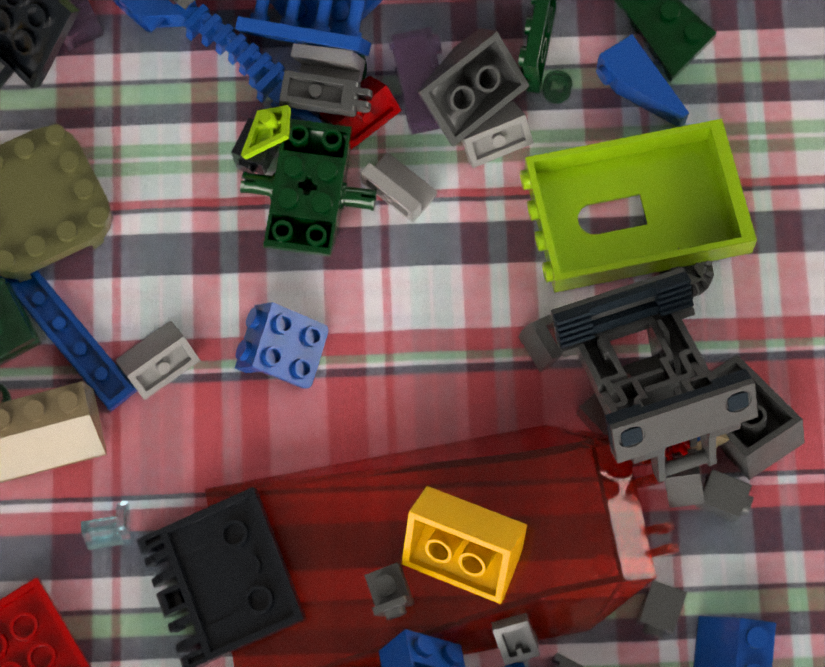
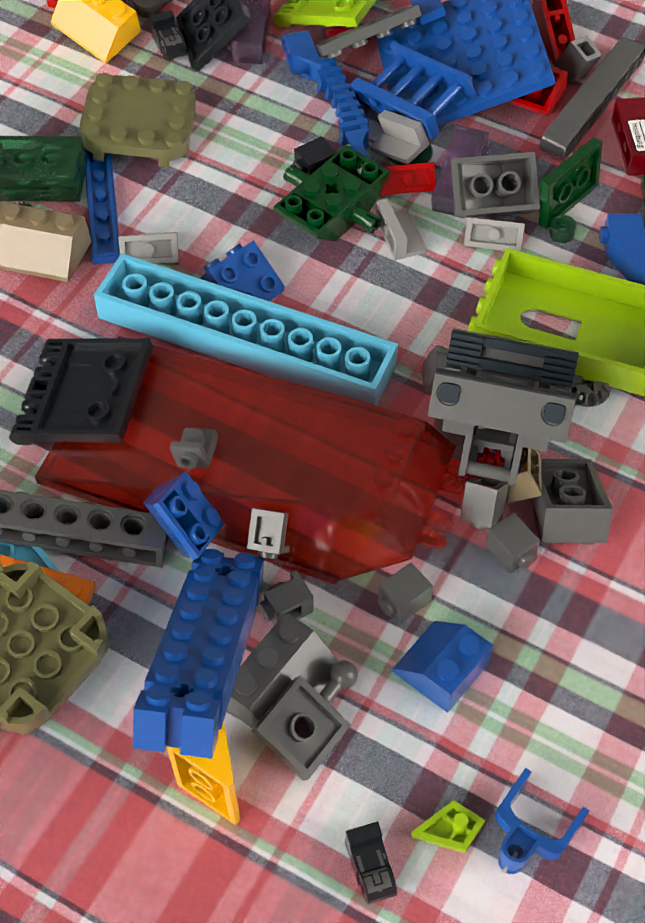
camera: 30 degrees right, 20 degrees down
(109, 530) = (31, 324): clear light blue tile -> none
(267, 130) = (328, 144): lime piece -> none
(324, 94) = (383, 143): dark grey hinge -> none
(330, 412) = (245, 330): none -> medium azure brick
(463, 544) = (272, 435): yellow slope -> none

